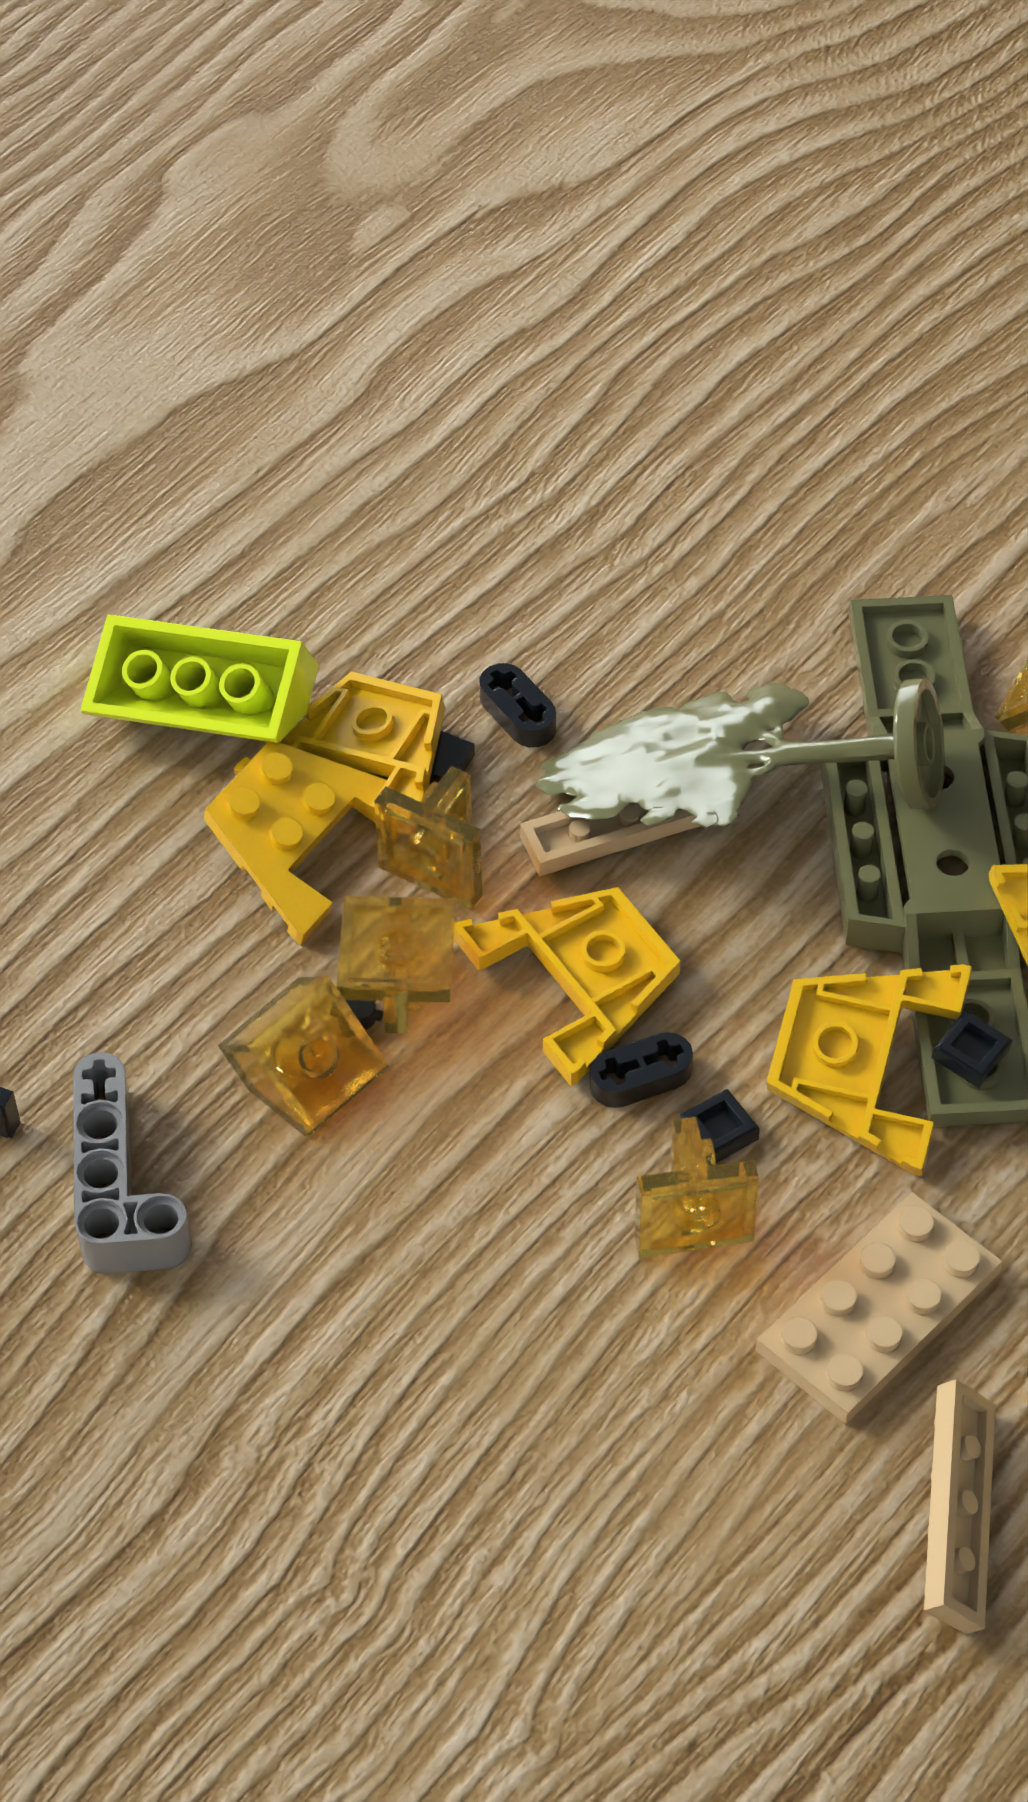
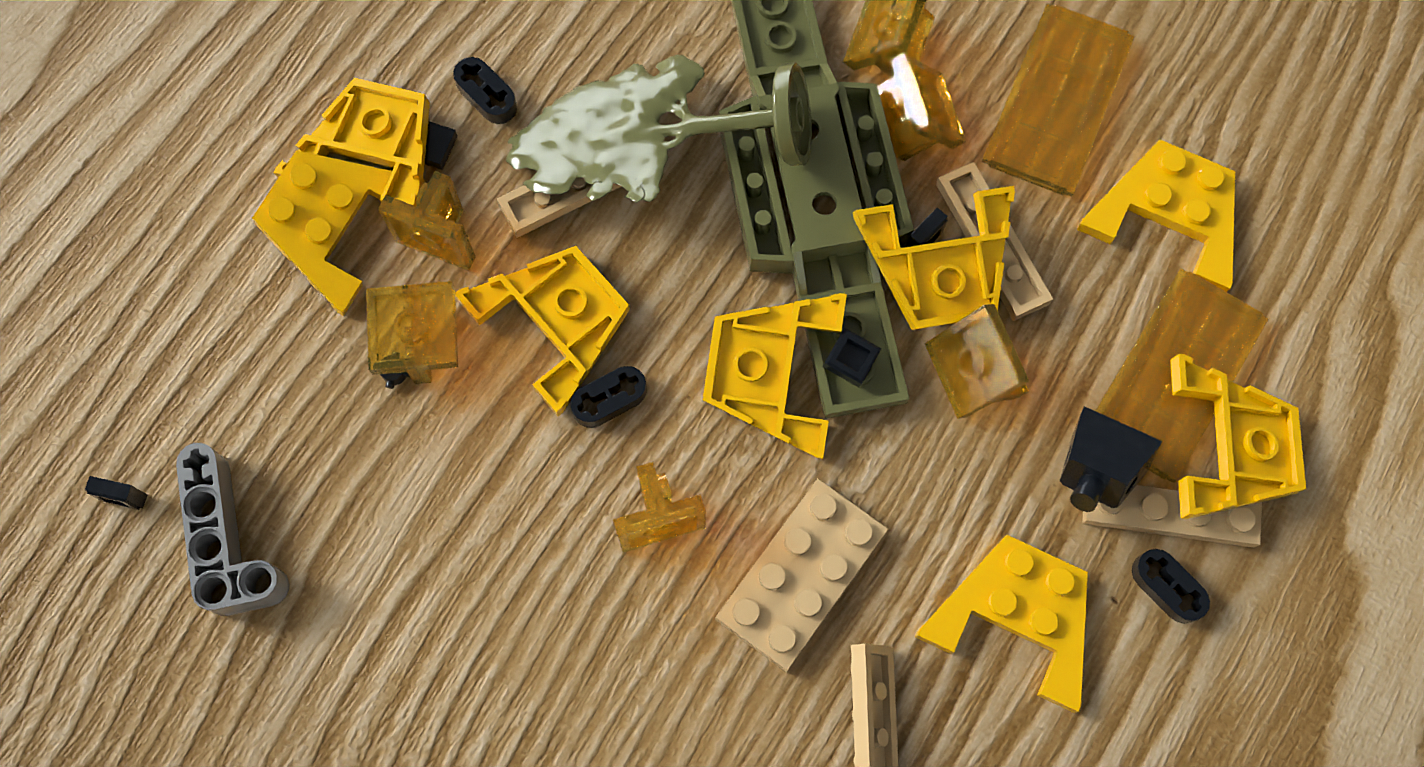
camera: 10 degrees left, 20 degrees up
(200, 679) = (235, 105): neon yellow slope -> none
(304, 1053) = (354, 417): clear yellow slope -> none
(724, 1123) = (671, 437): black tile -> none

